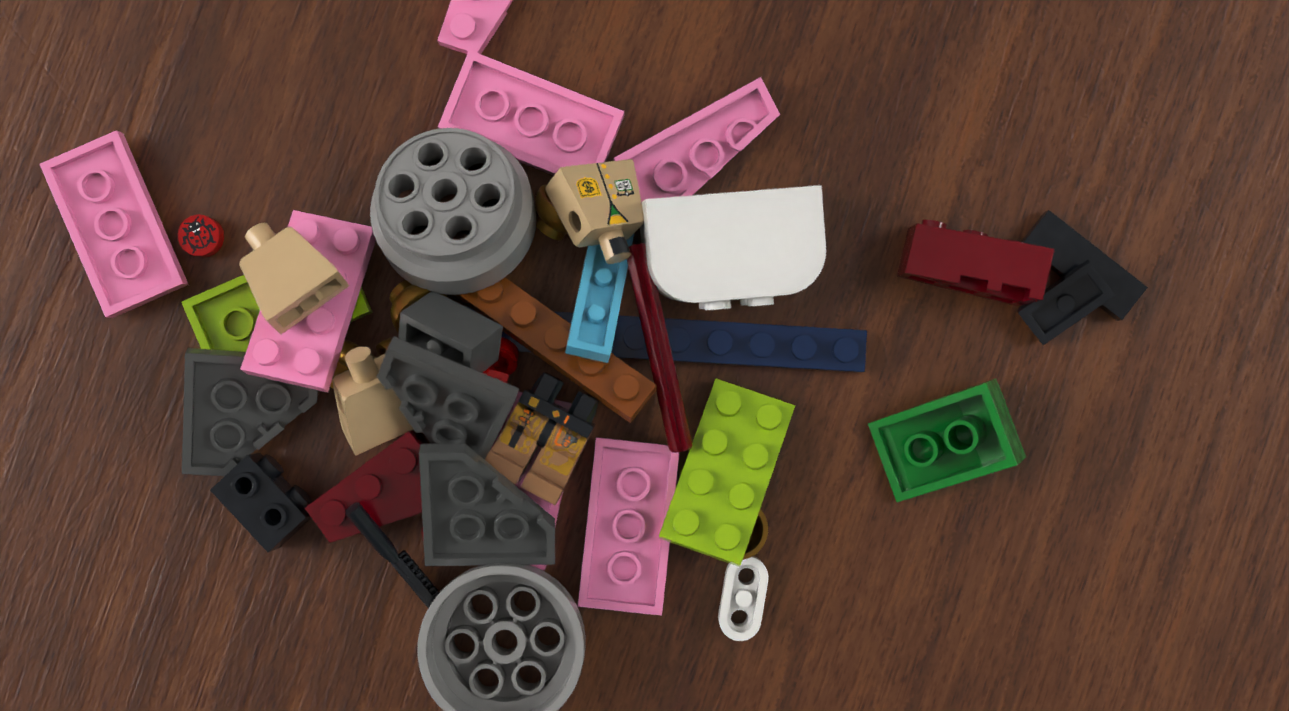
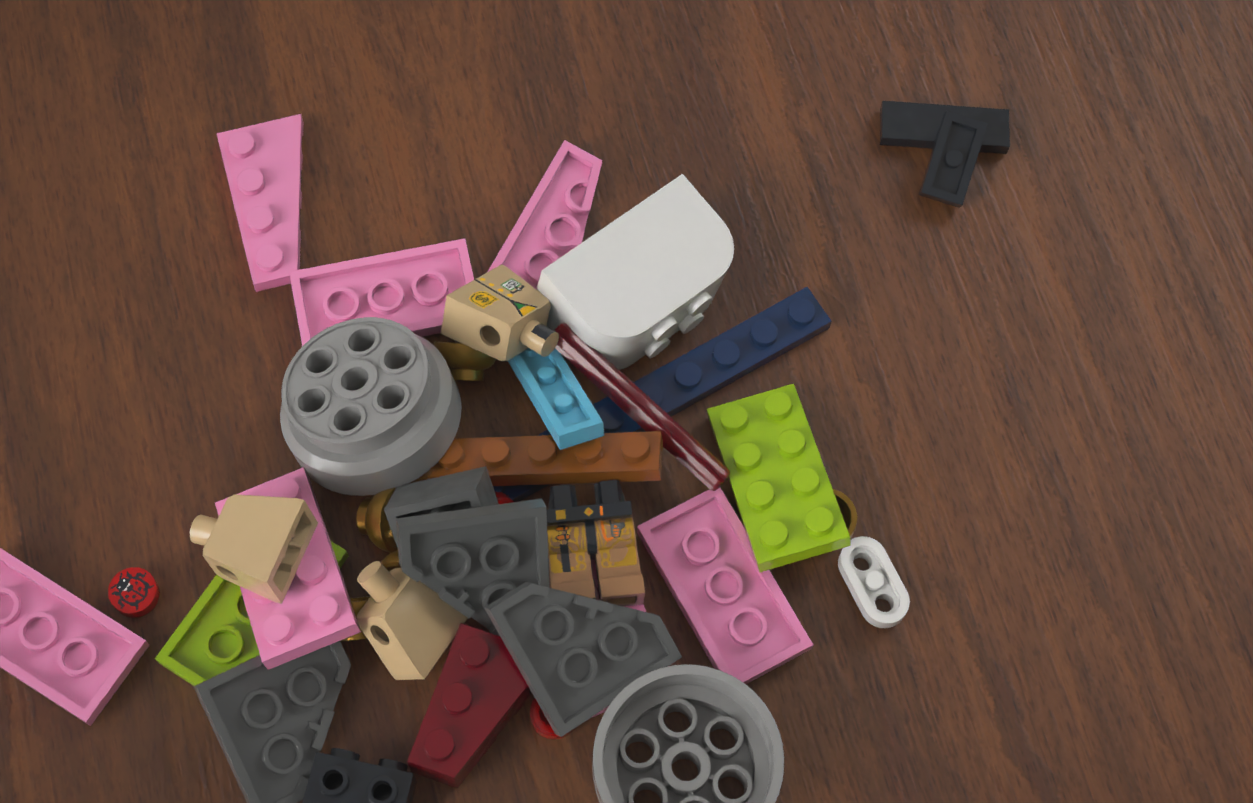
camera: 35 degrees left, 20 degrees down
(401, 562) = (541, 761): black piece -> none
(947, 441) = (943, 331): green slope -> none
(975, 263) = (857, 173): dark red wedge -> none

